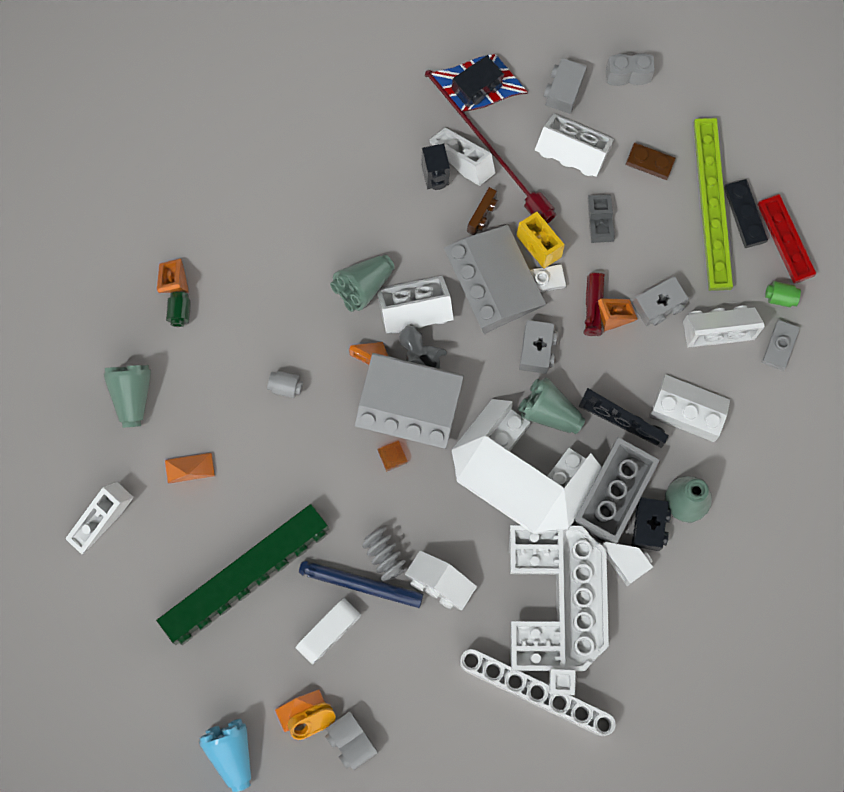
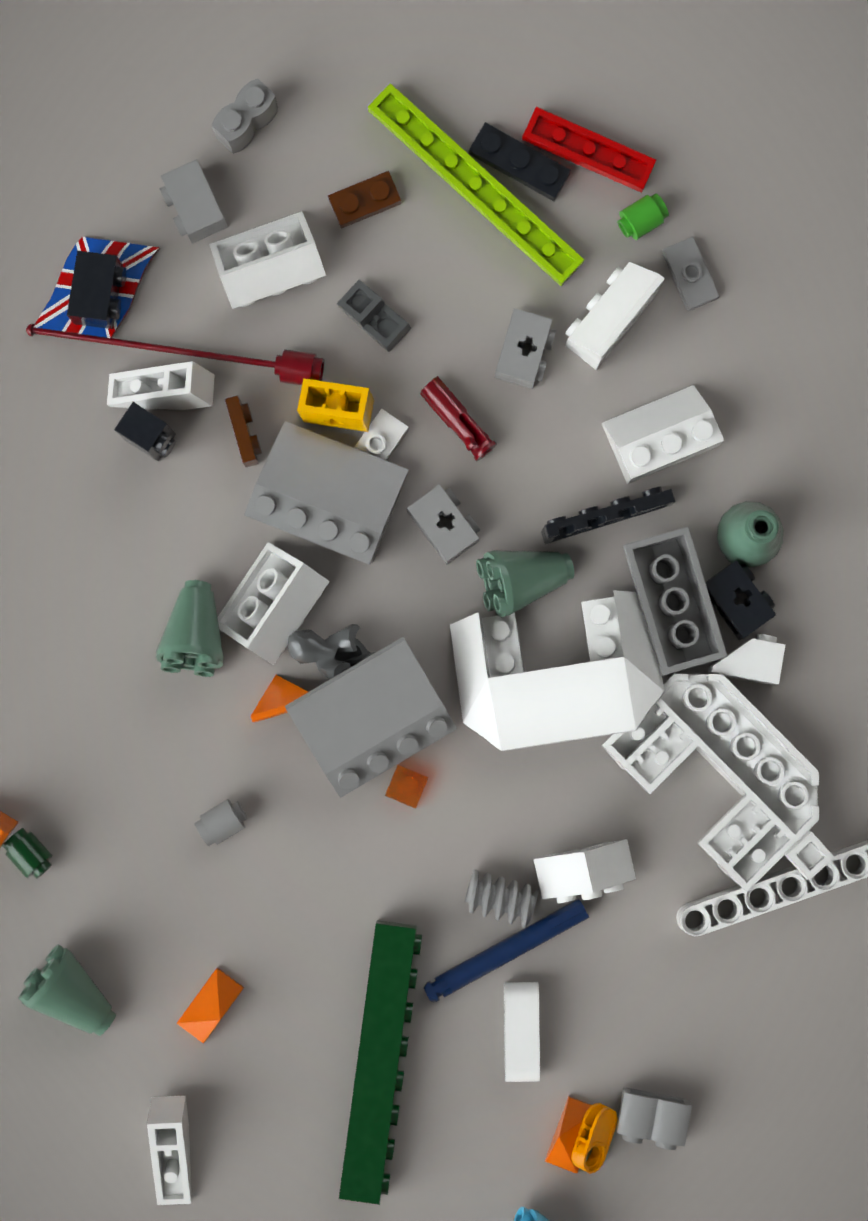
camera: 40 degrees left, 10 degrees up
(616, 313) = (490, 405): orange slope -> none

